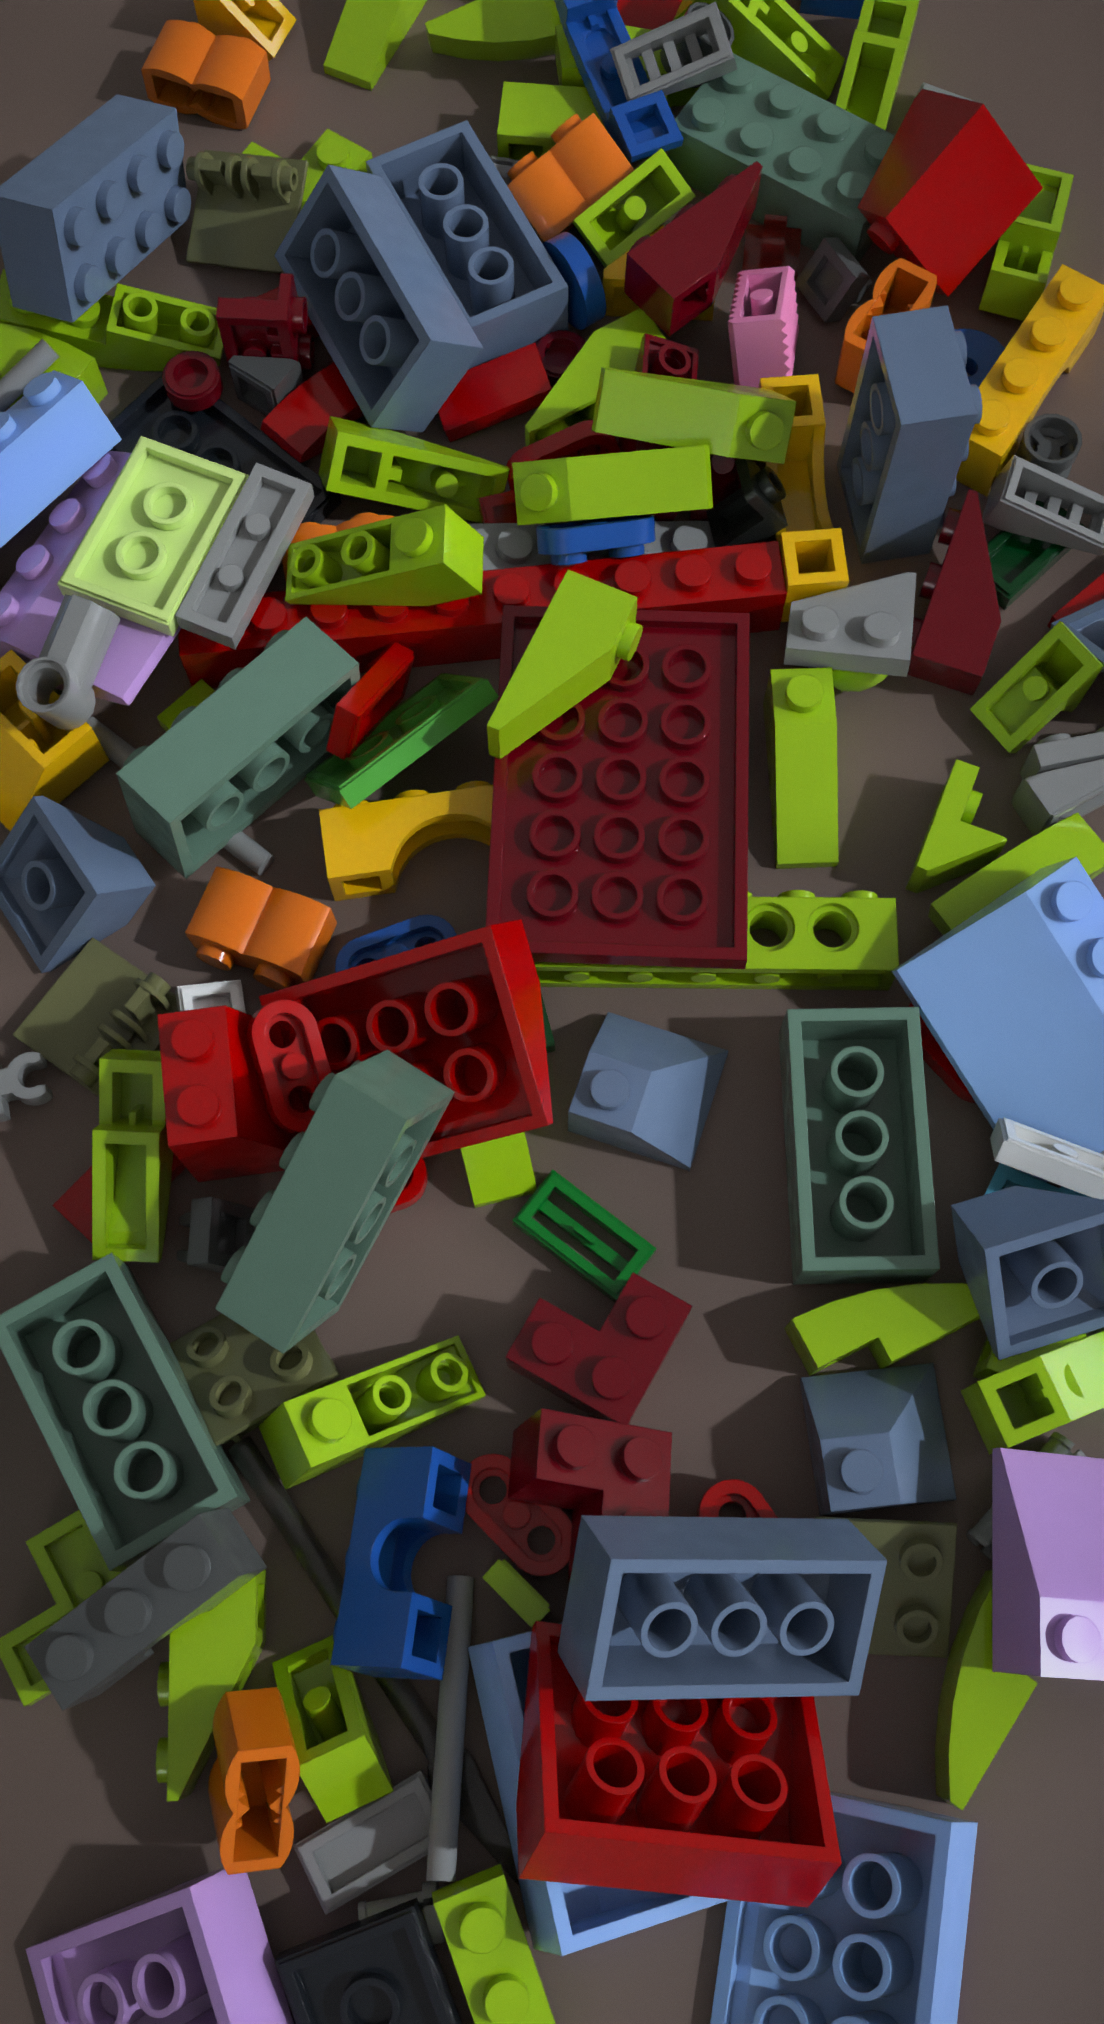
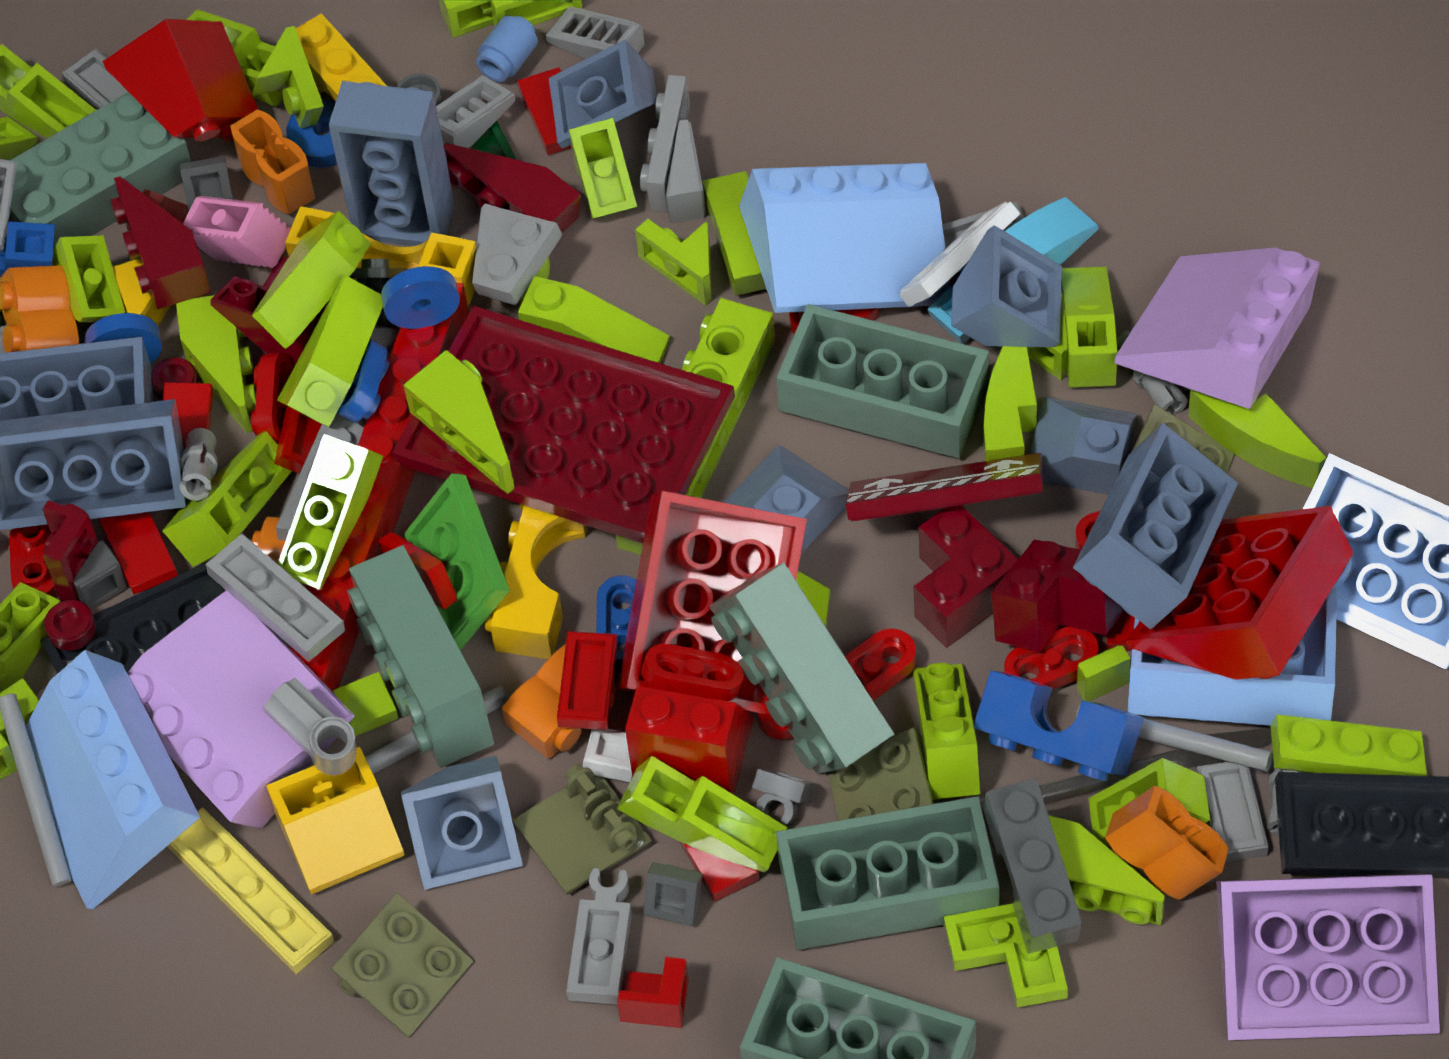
camera: 65 degrees left, 15 degrees down
(34, 1157) = (672, 893): none -> dark grey tile
(152, 534) = (225, 651): yellowish green tile -> none
(271, 947) = (587, 680): none -> red tile
(422, 413) = (198, 464): none -> light grey pin
(432, 1284) = (869, 662): none -> red plate
(568, 1256) = (880, 576): green tile -> none
(713, 1289) = (945, 487): none -> dark red tile
(715, 542) = (420, 297): none -> blue piece
(1010, 280) = (290, 71): none -> lime slope

